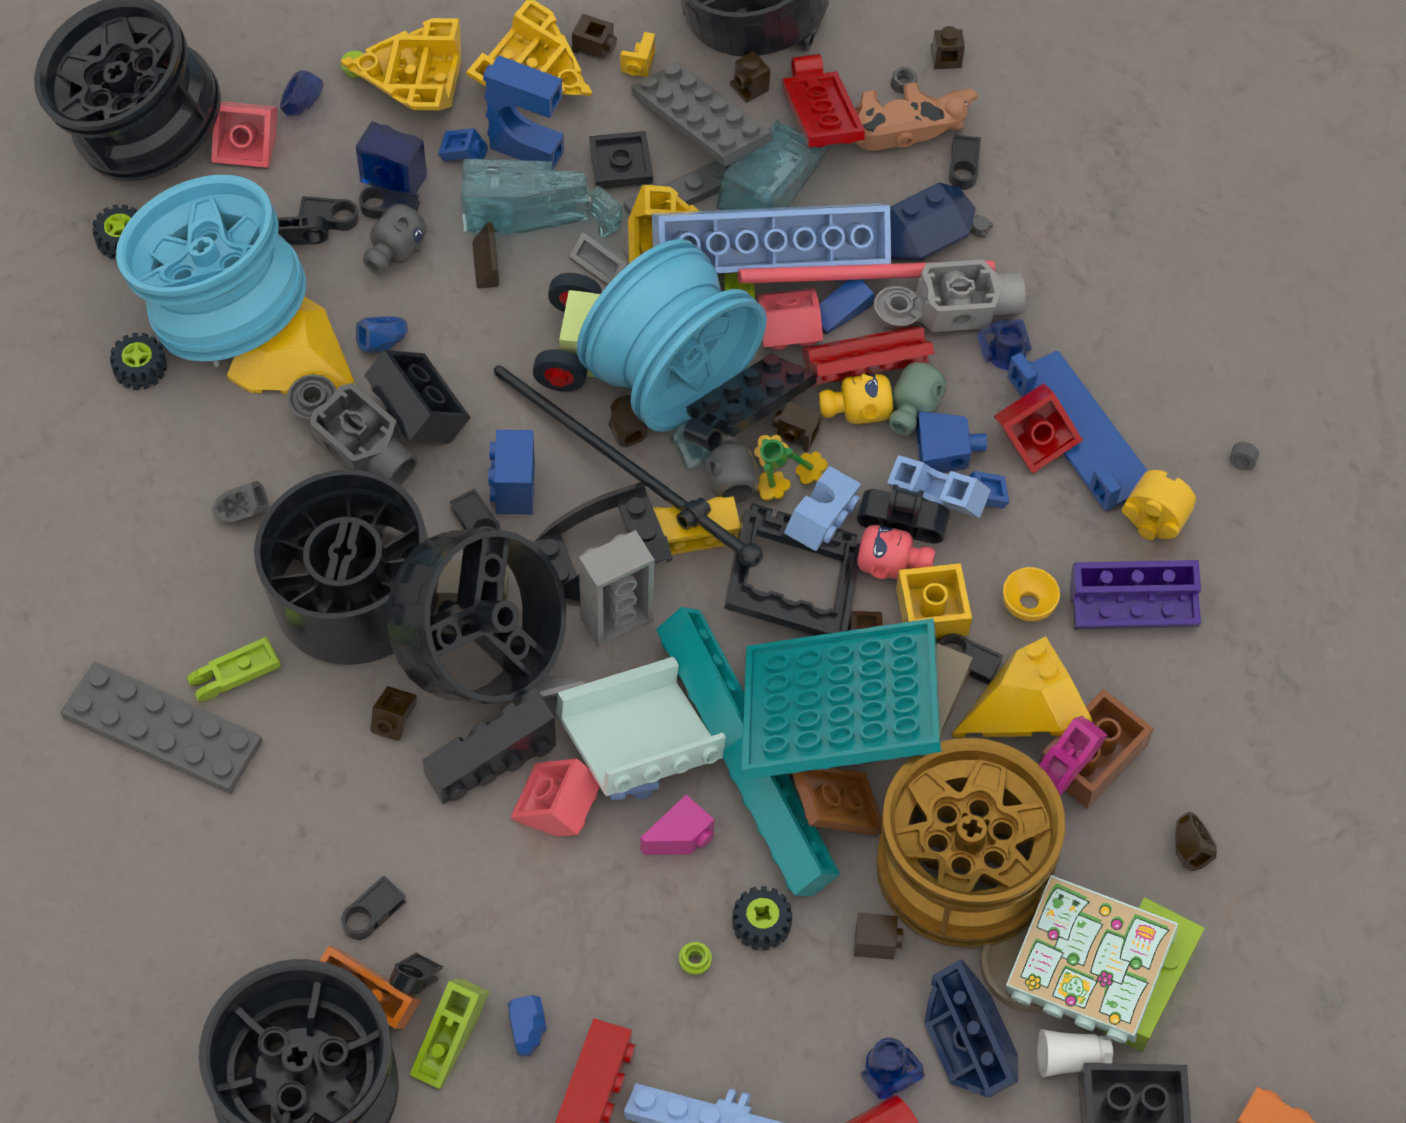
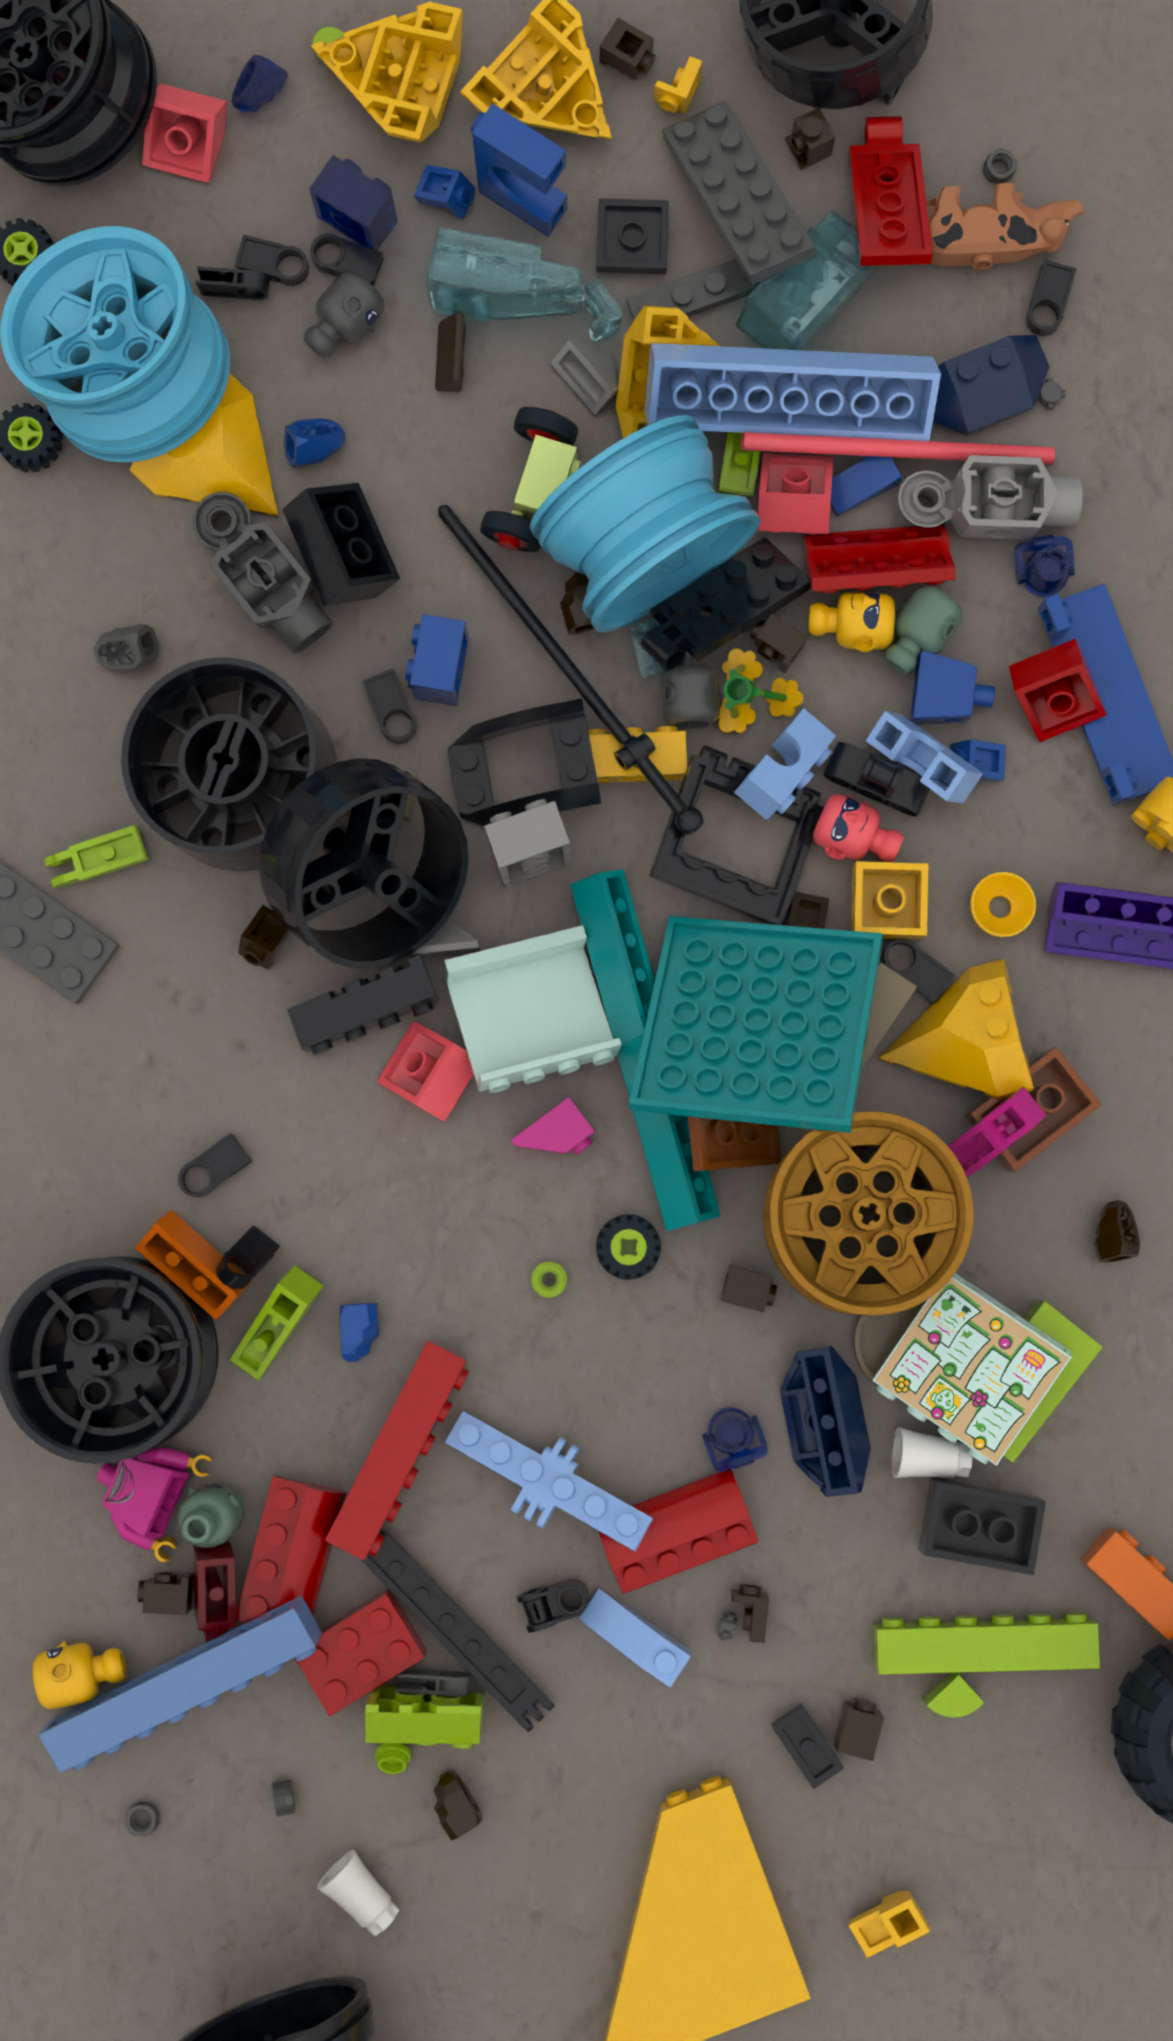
camera: 15 degrees right, 25 degrees up
(948, 40) = (1063, 124): dark brown brick -> none

